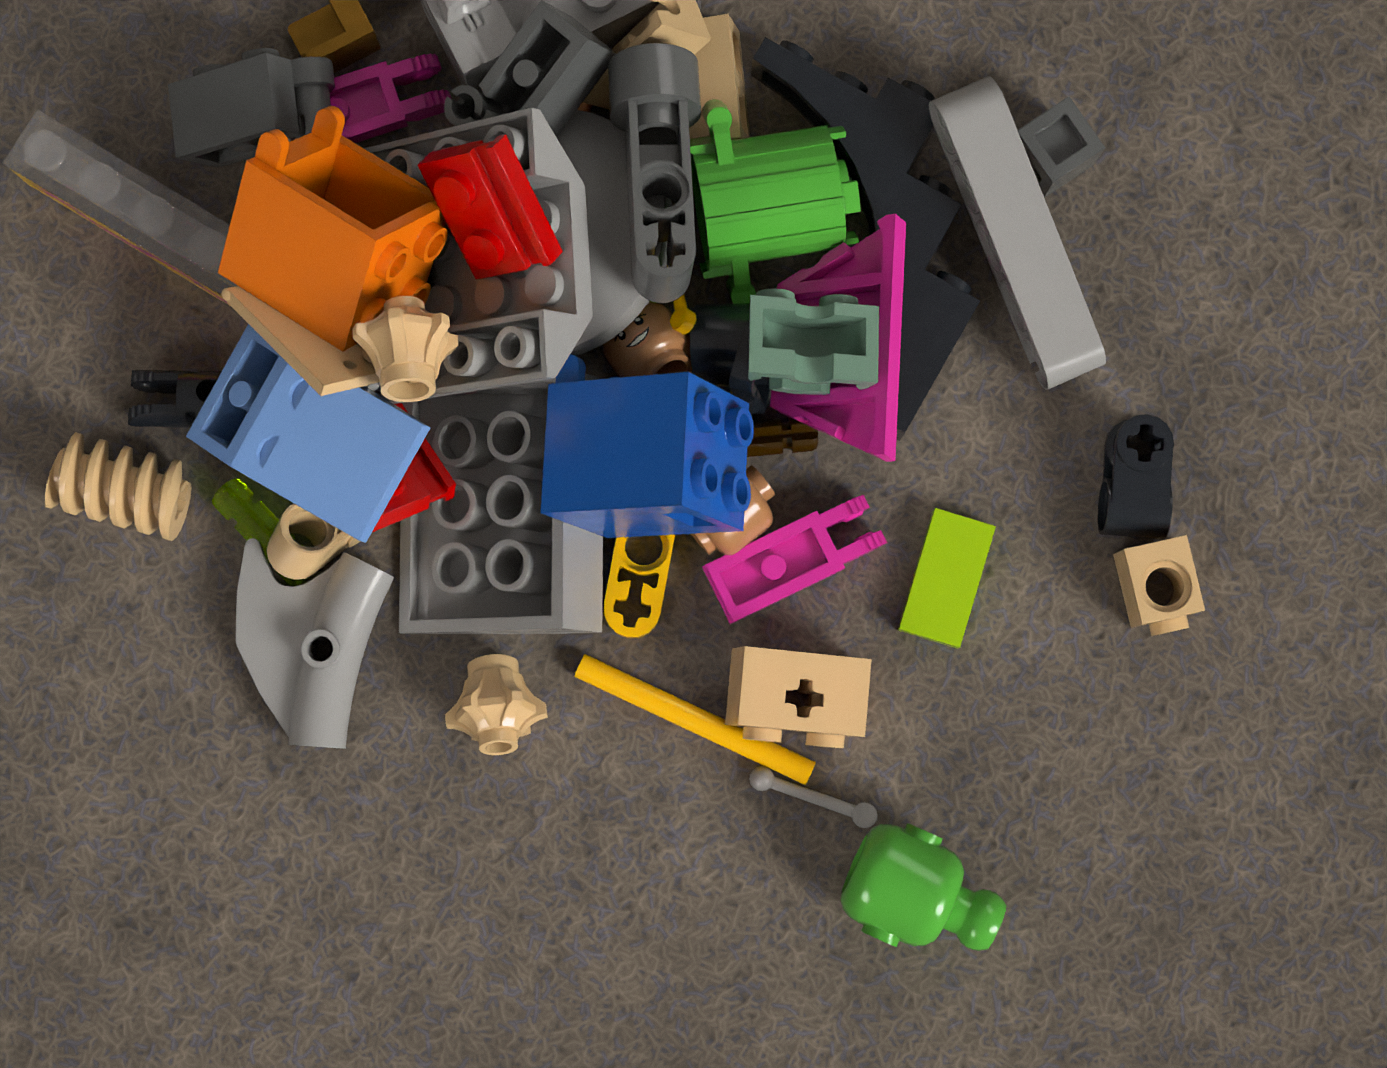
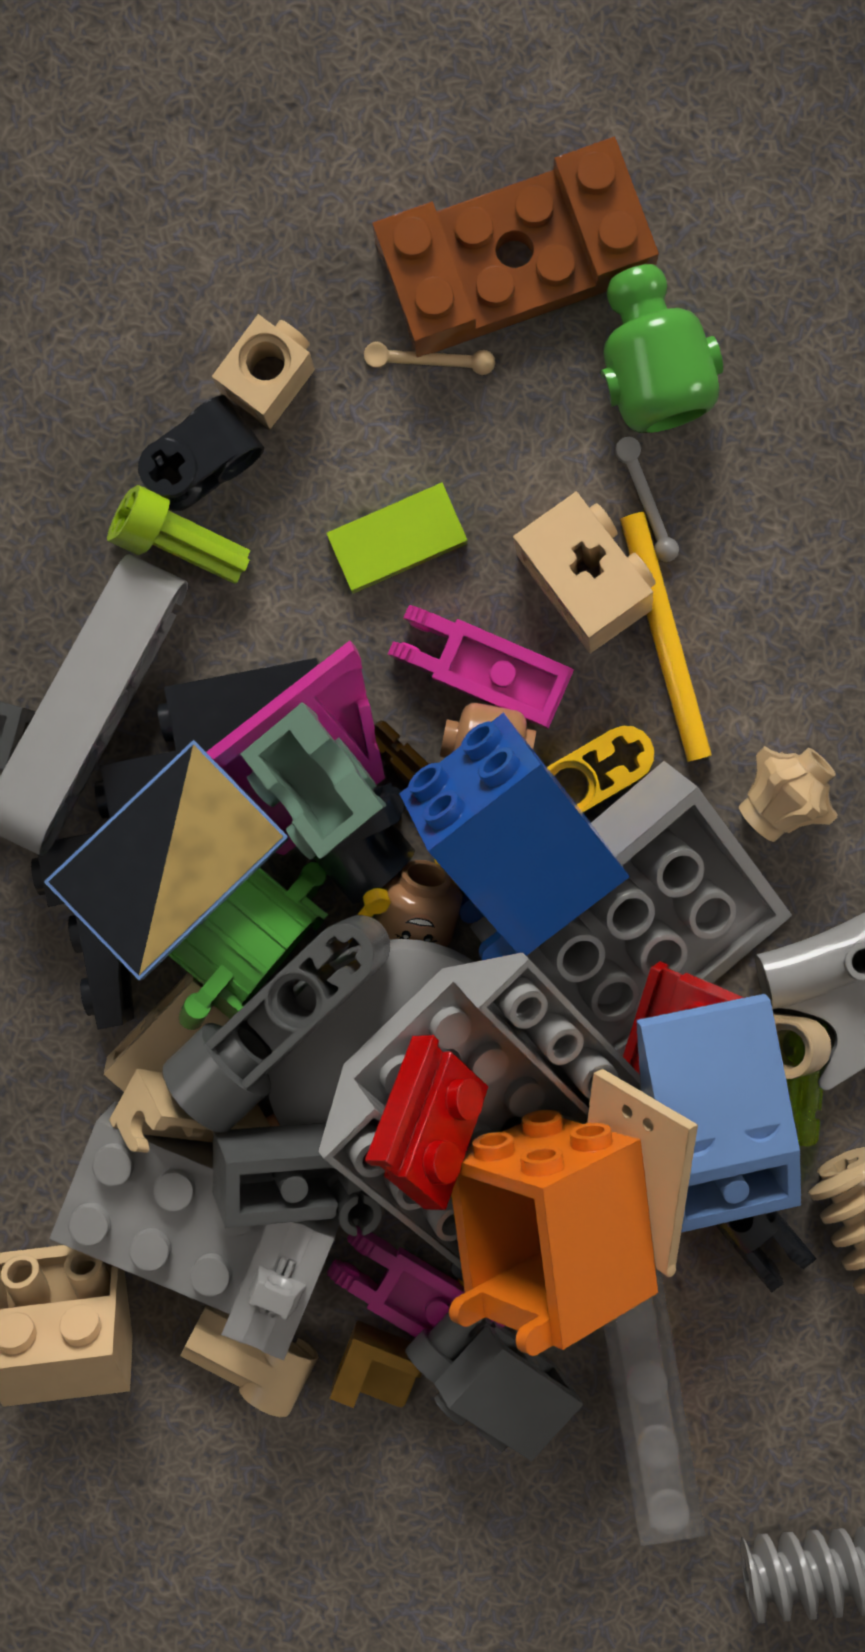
camera: 125 degrees left, 5 degrees up
(406, 348) = (599, 1091): tan rock -> none
(845, 186) = (166, 860): none -> tile
(1101, 685) = (378, 355): none -> tan hinge
(1117, 394) = (146, 521): none -> lime piece
(1128, 797) = (574, 219): none -> dark orange piece

